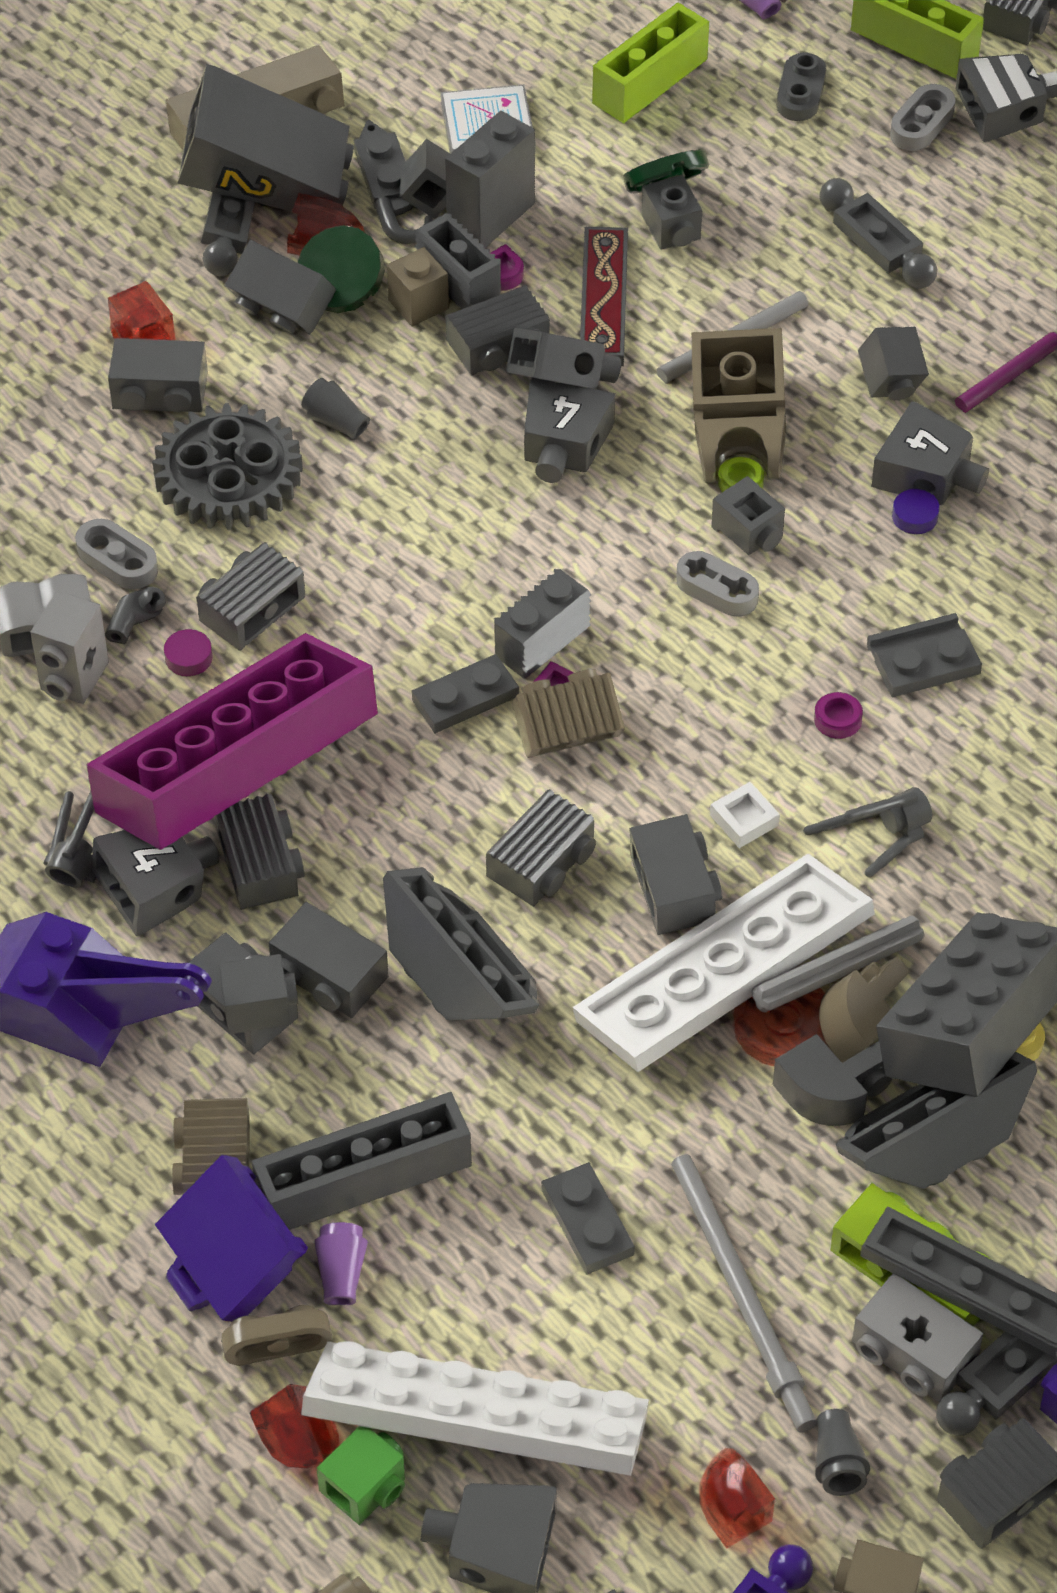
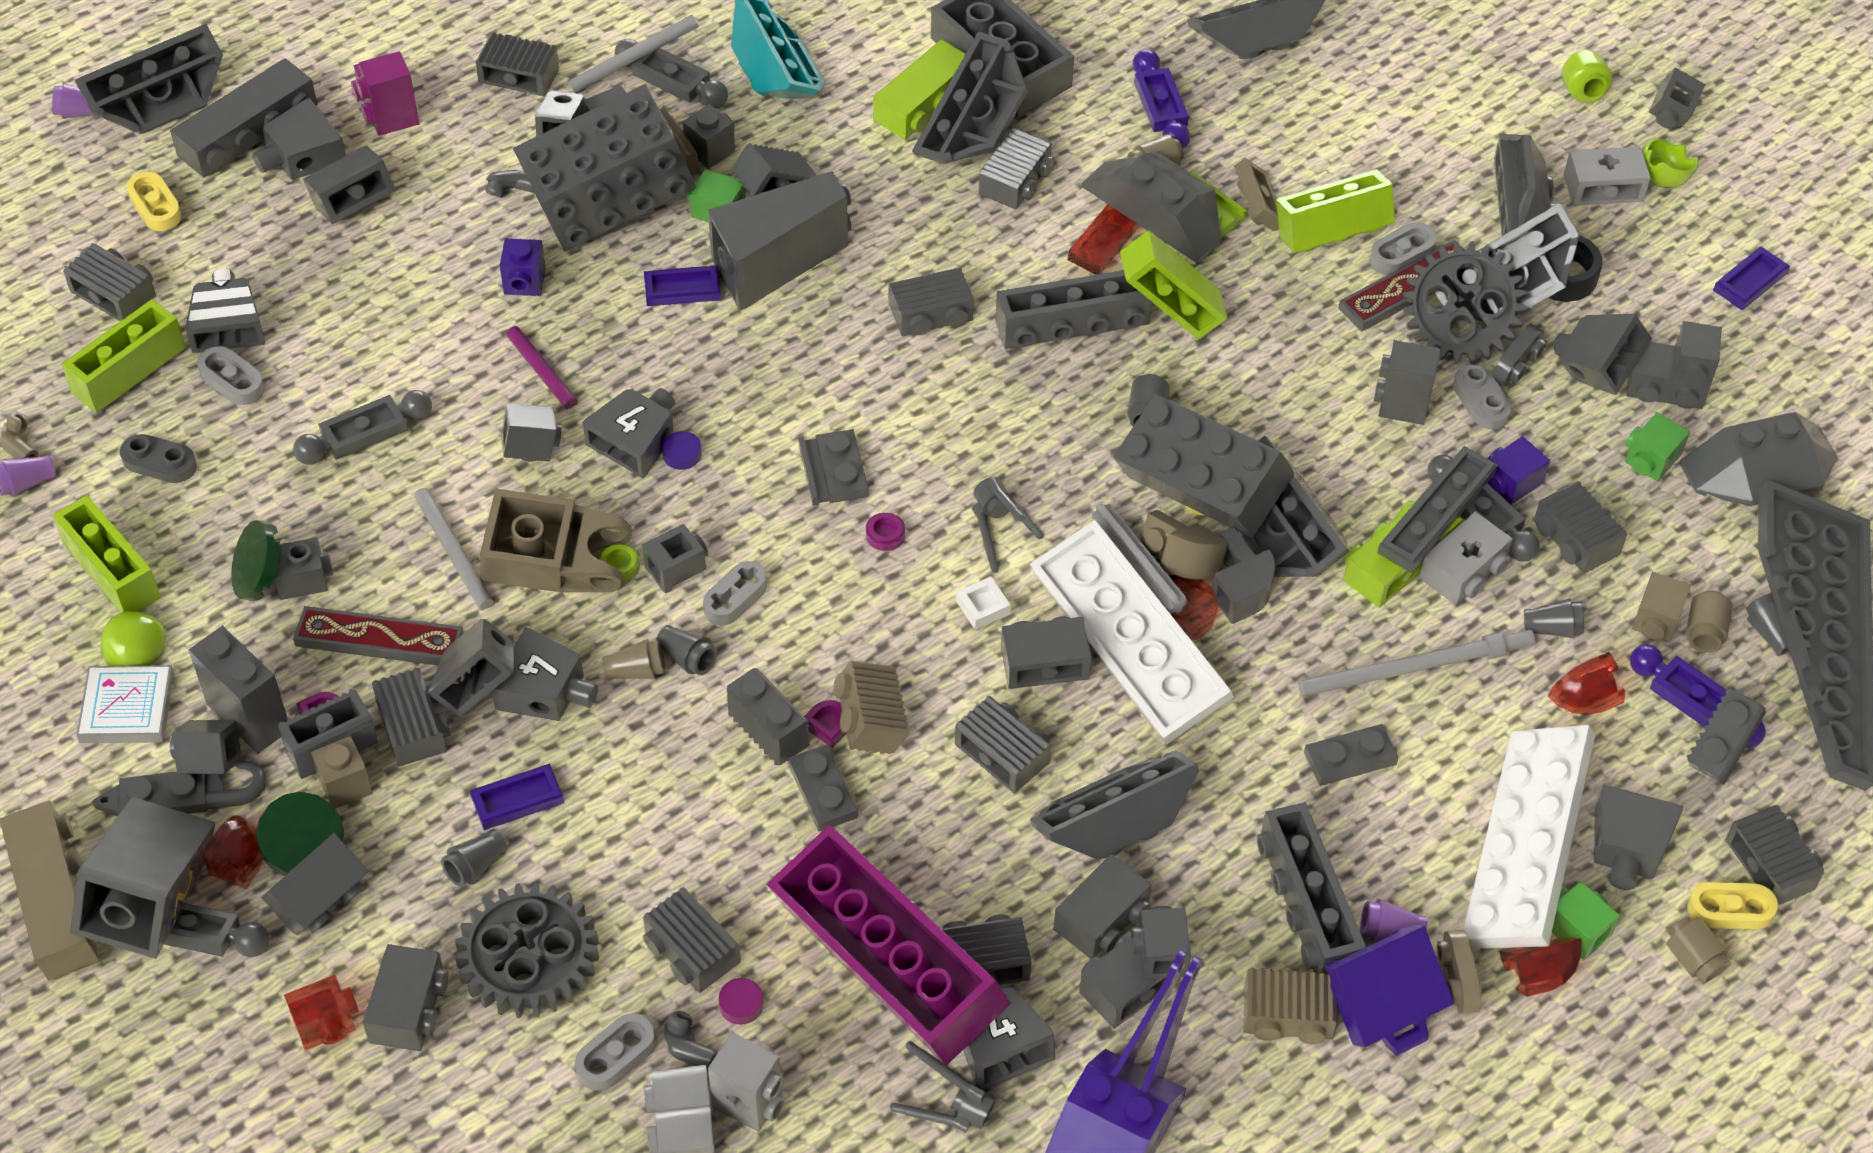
camera: 85 degrees left, 0 degrees up
(419, 436) = (516, 796): none -> dark purple tile
(562, 110) = (132, 639): none -> lime hair
(603, 508) = (638, 661): none -> dark tan cone
(626, 548) = (688, 649): none -> dark grey cone

